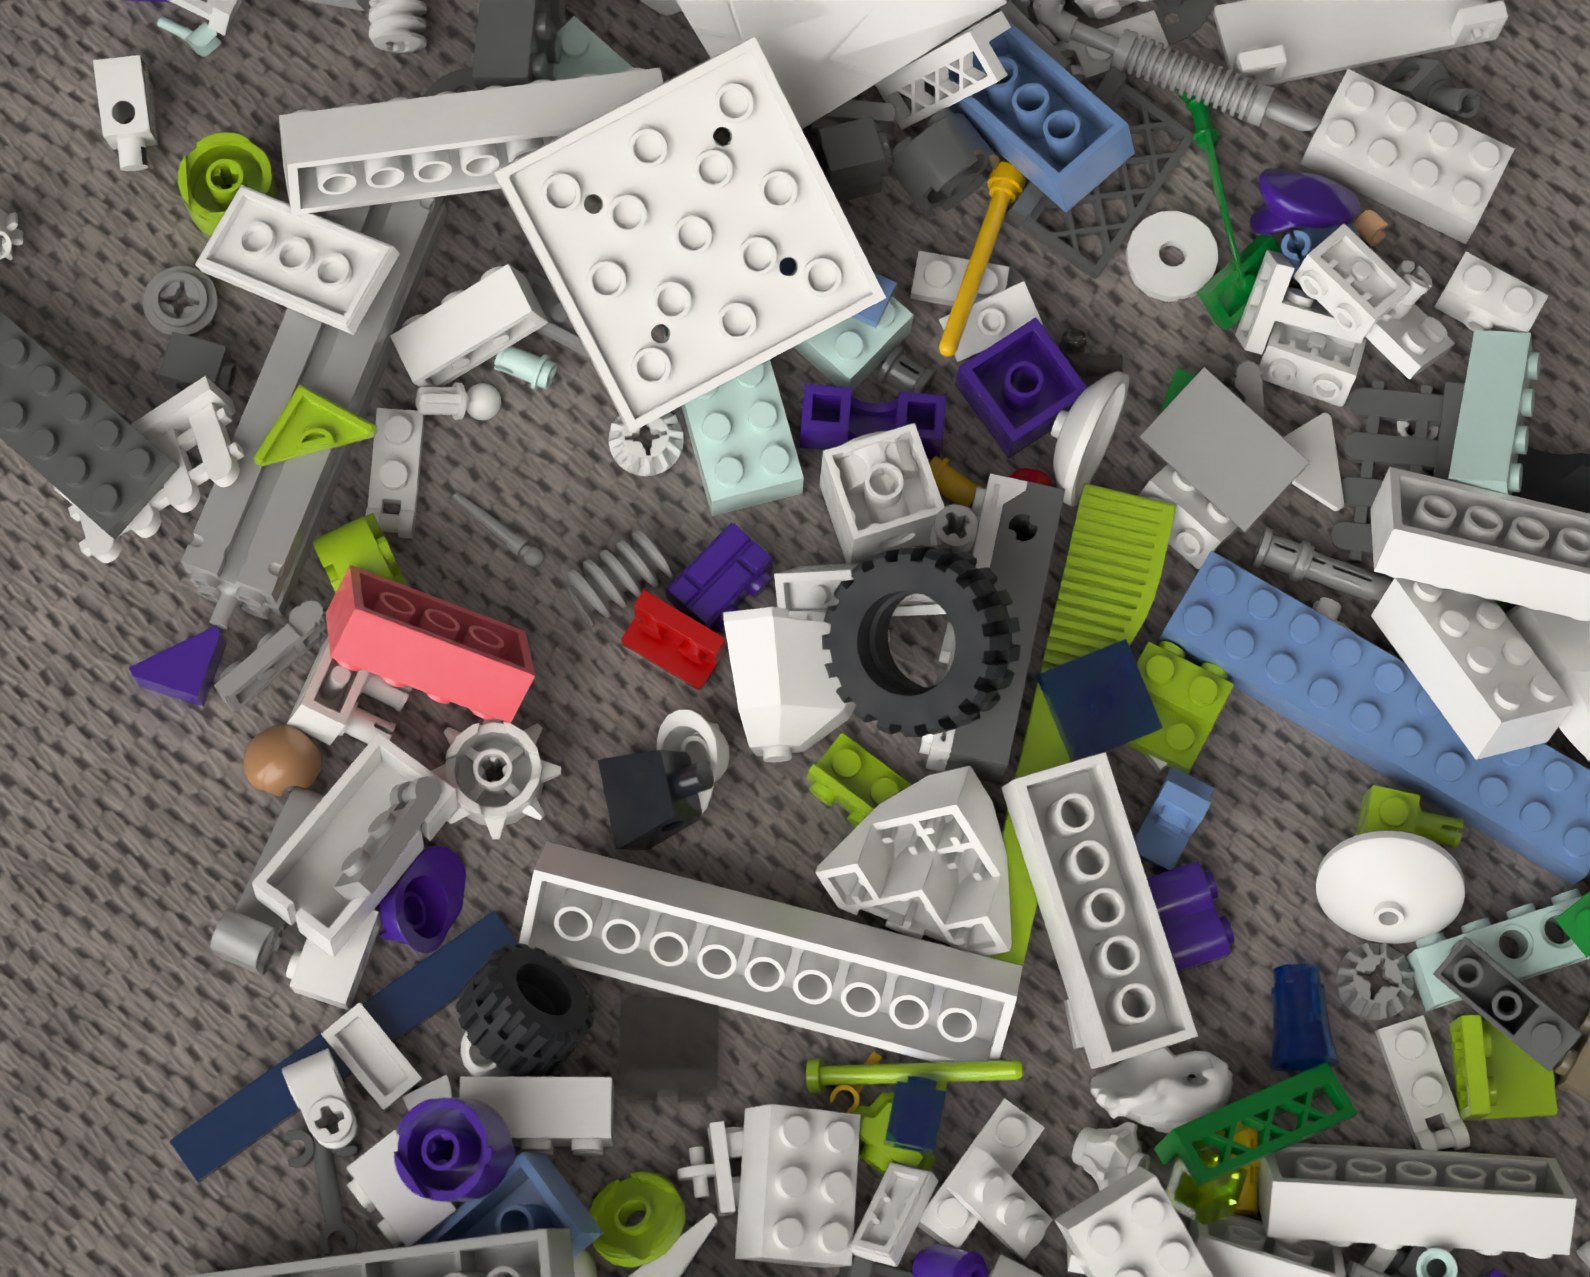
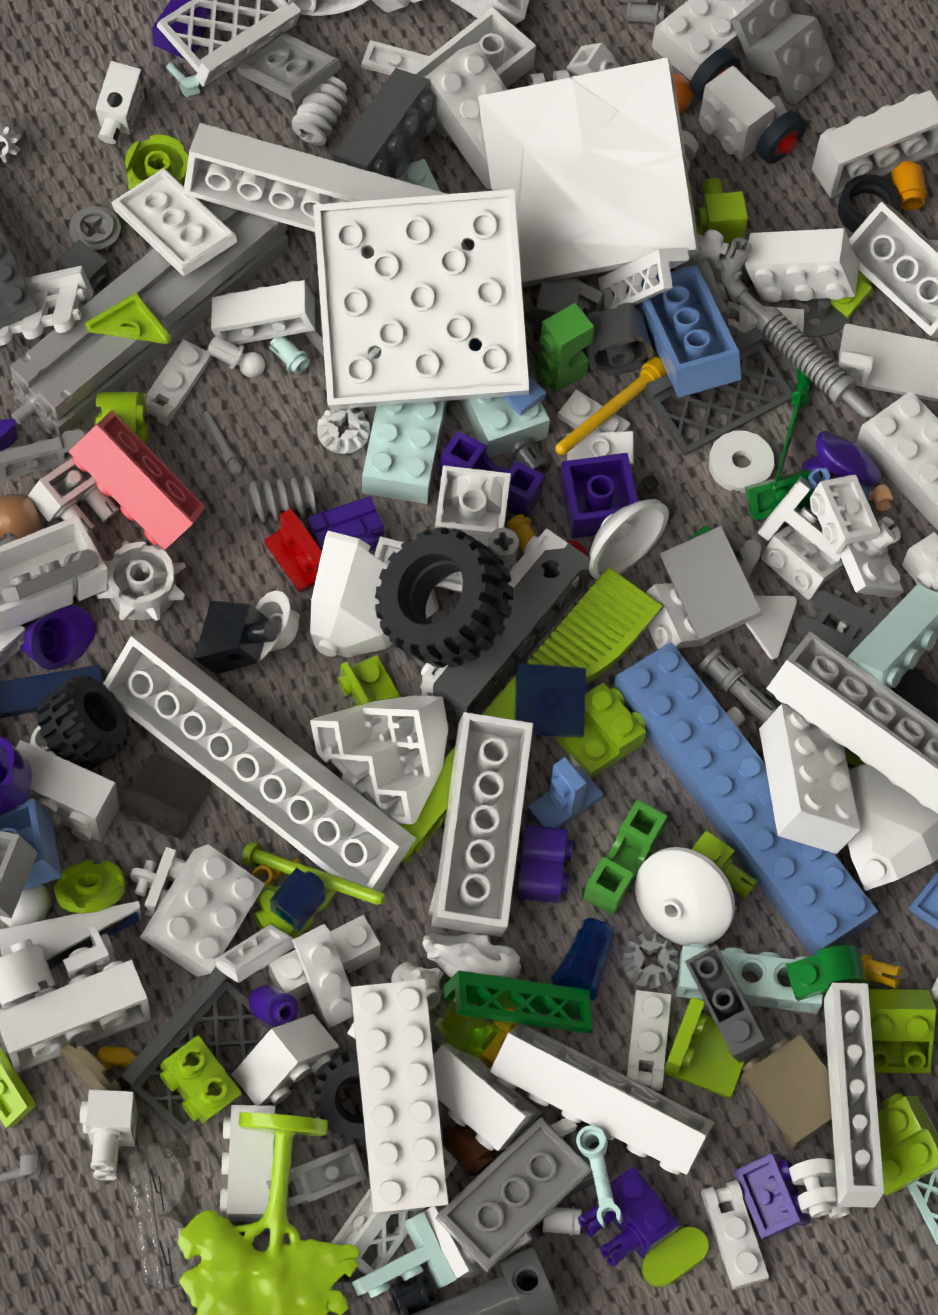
camera: 25 degrees right, 10 degrees down
(888, 207) = (561, 348): none -> bright green arch
(1285, 850) = (630, 850): none -> bright green arch

